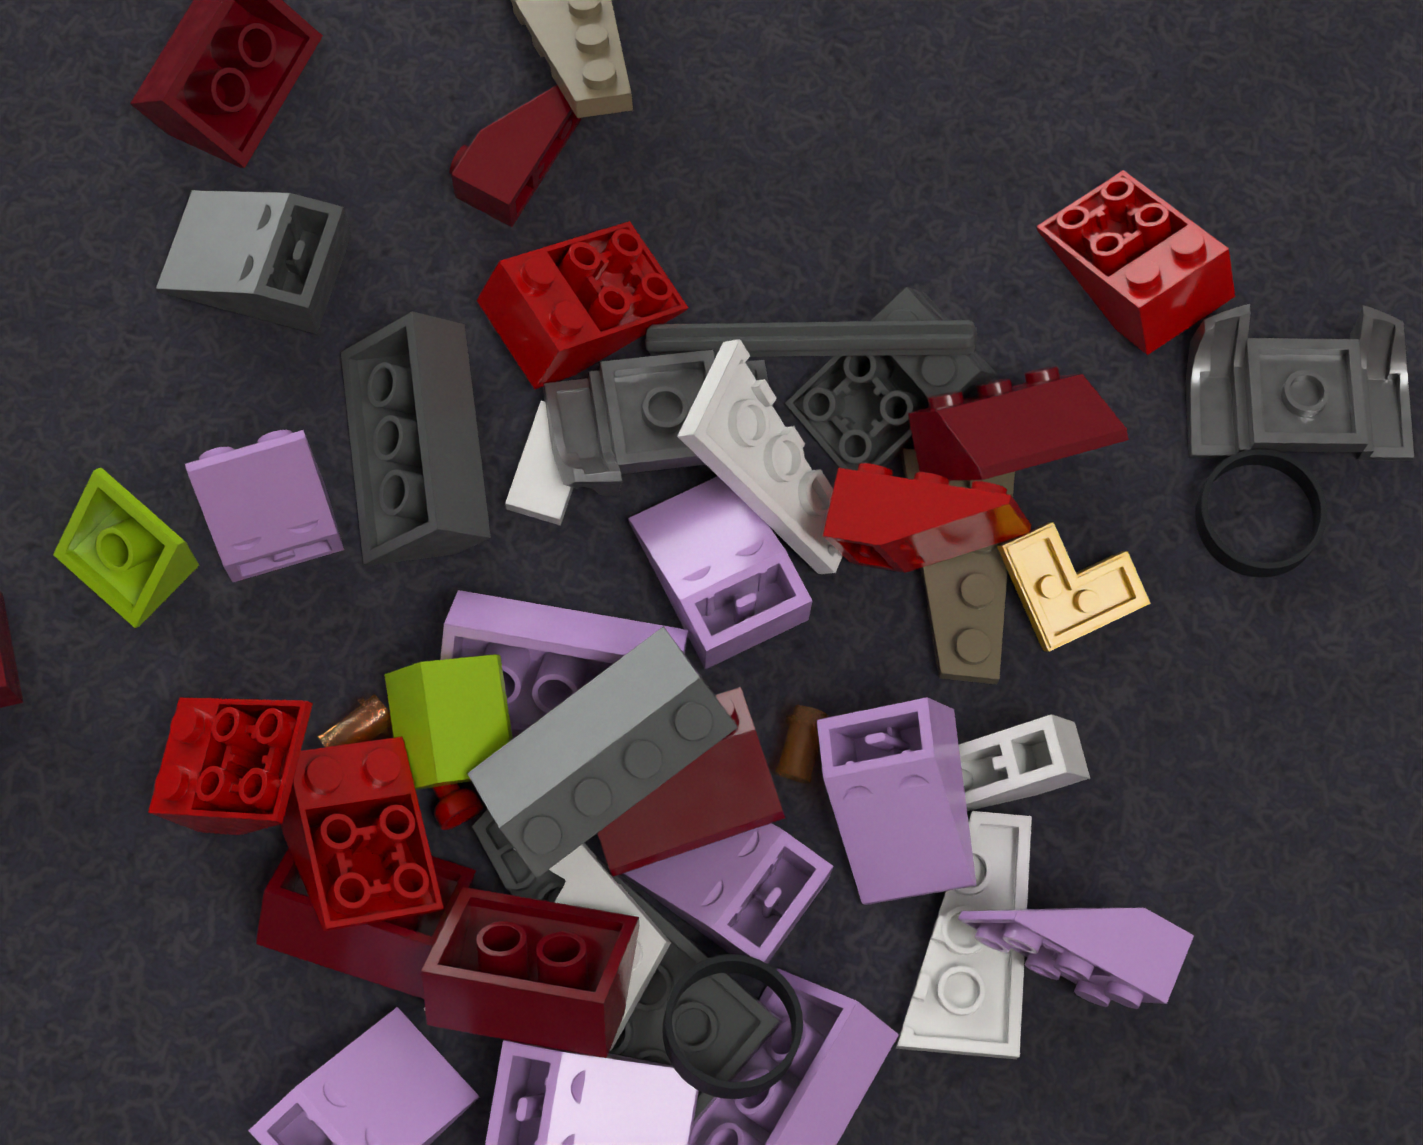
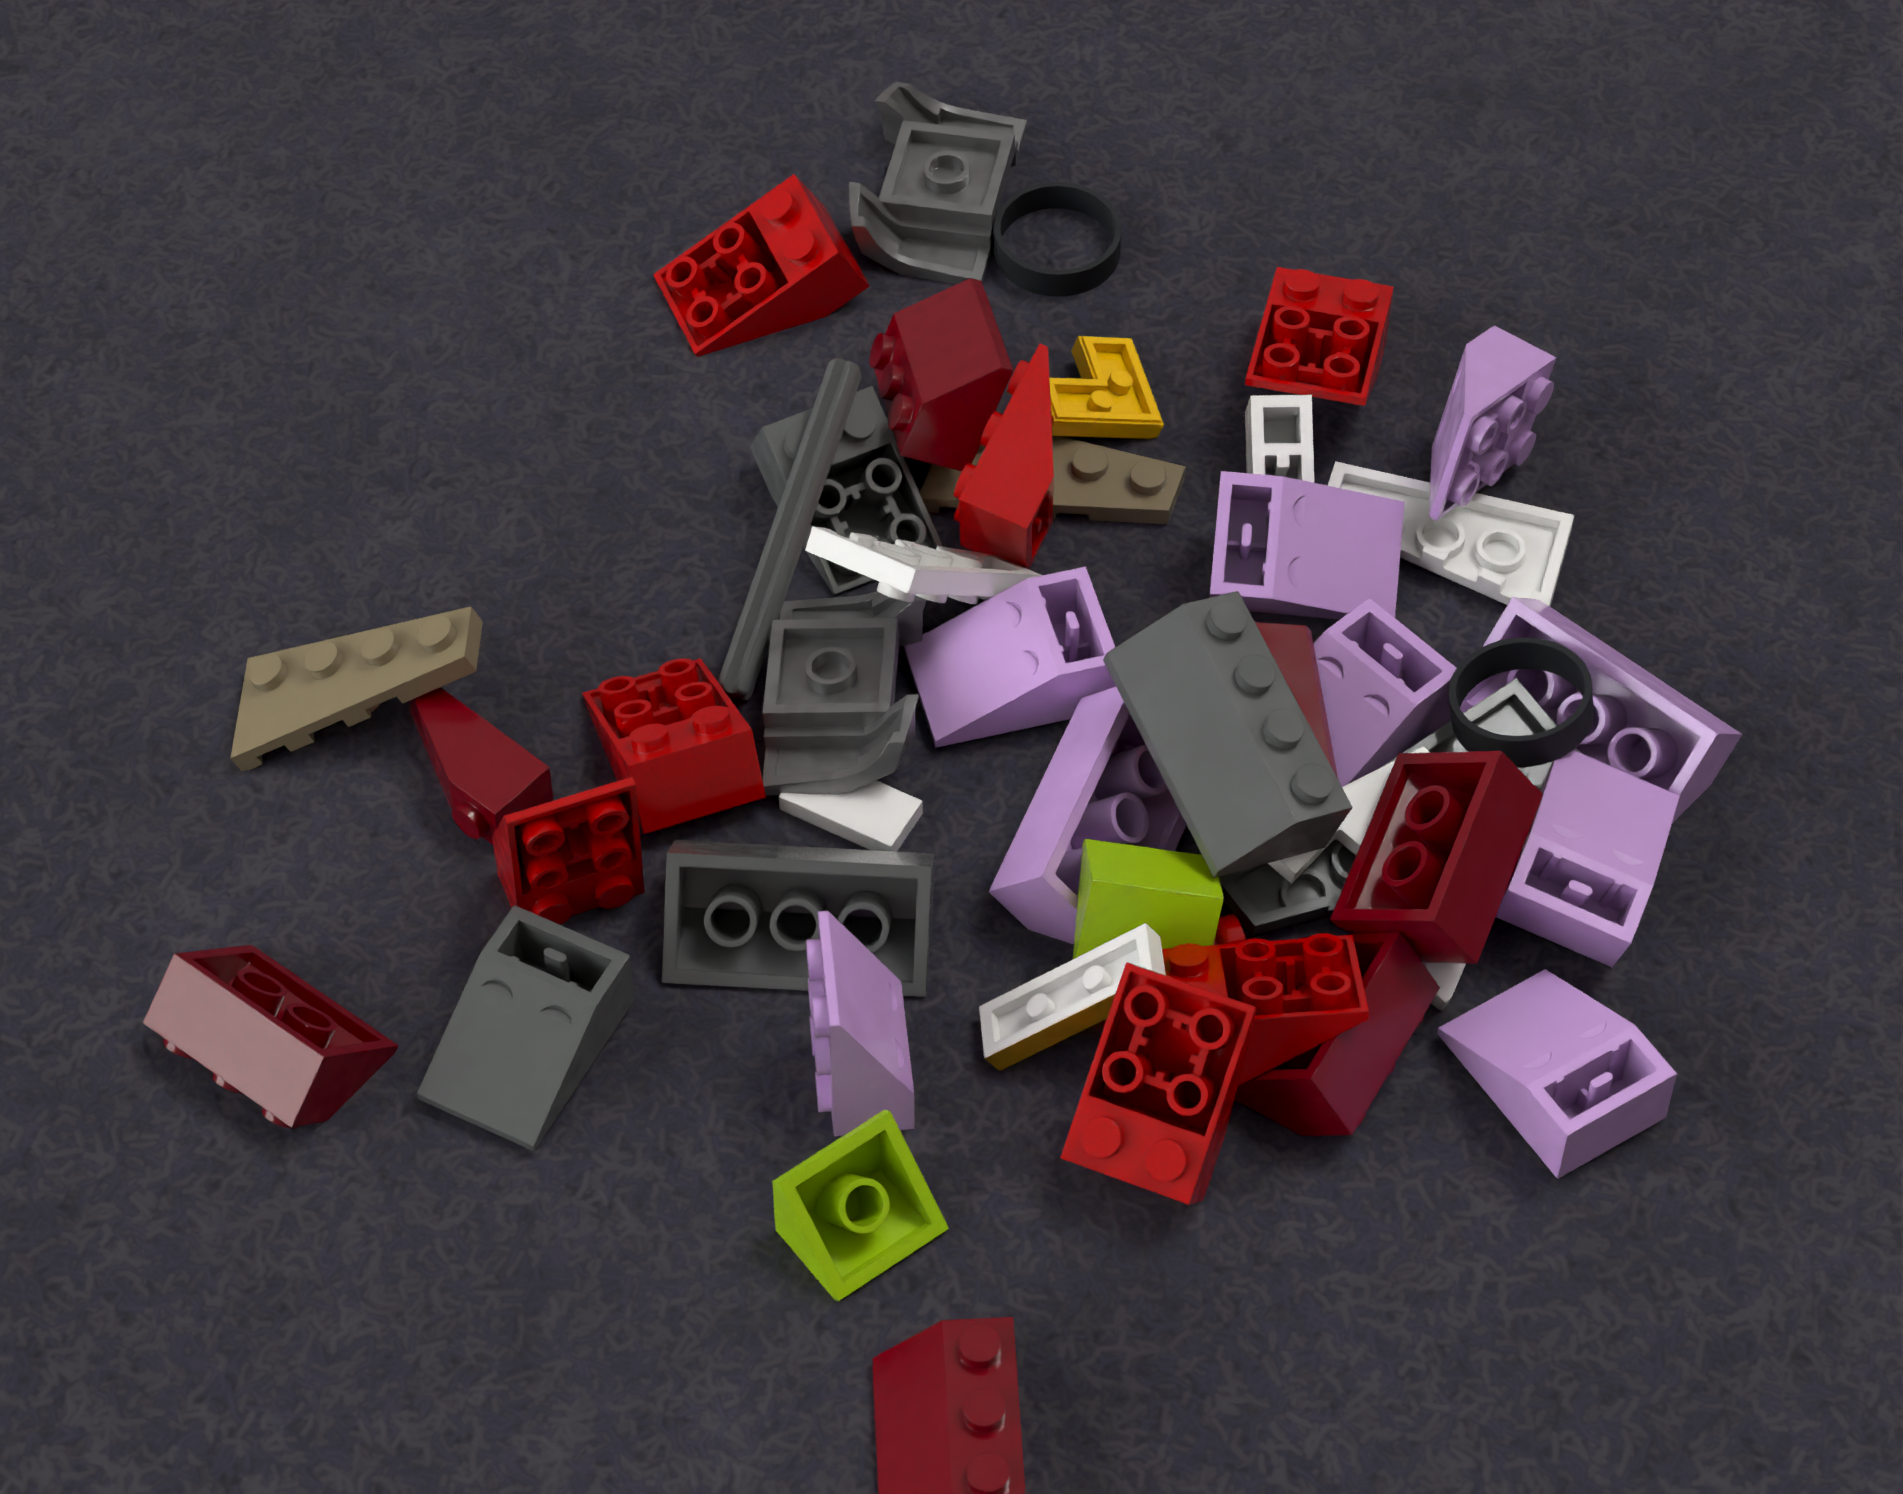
camera: 75 degrees left, 20 degrees down
(342, 679) = (1063, 998): none -> white plate
(418, 237) = (572, 853): none -> red slope
(1160, 775) = (1321, 336): none -> red slope

